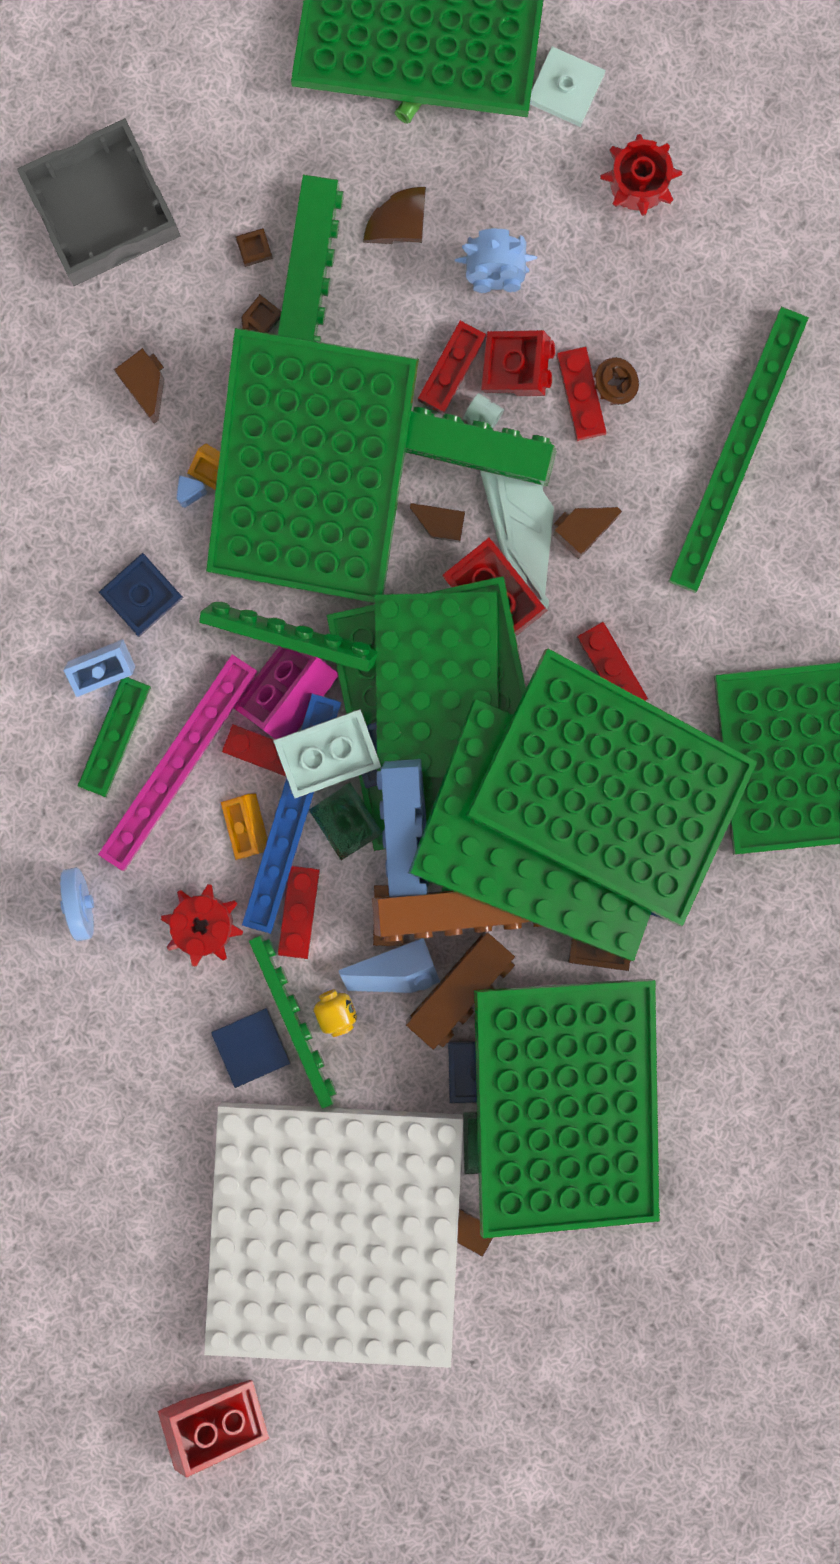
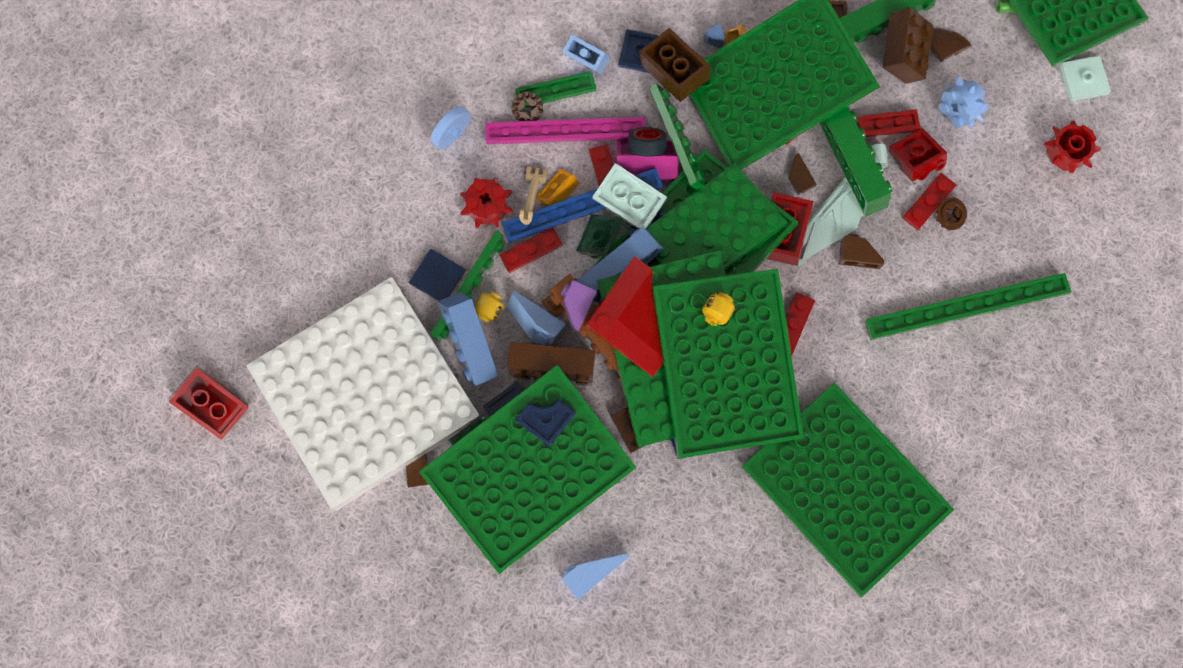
camera: 55 degrees right, 10 degrees down
(110, 776) = (519, 103): none -> reddish brown gear
(195, 573) = (674, 64): none -> reddish brown brick
(258, 891) = (527, 213): none -> tan hinge
(270, 679) = (647, 141): none -> black wheel
(359, 1067) = (468, 338): none -> medium blue wedge
(376, 269) = (908, 45): none -> reddish brown brick
(421, 916) = (577, 302): none -> medium lavender slope
(482, 869) = (629, 319): none -> red slope
(532, 1051) = (547, 421): none -> dark blue tile
(550, 758) = (718, 309): none -> yellow head
(732, 1121) = (587, 575): none -> light blue slope

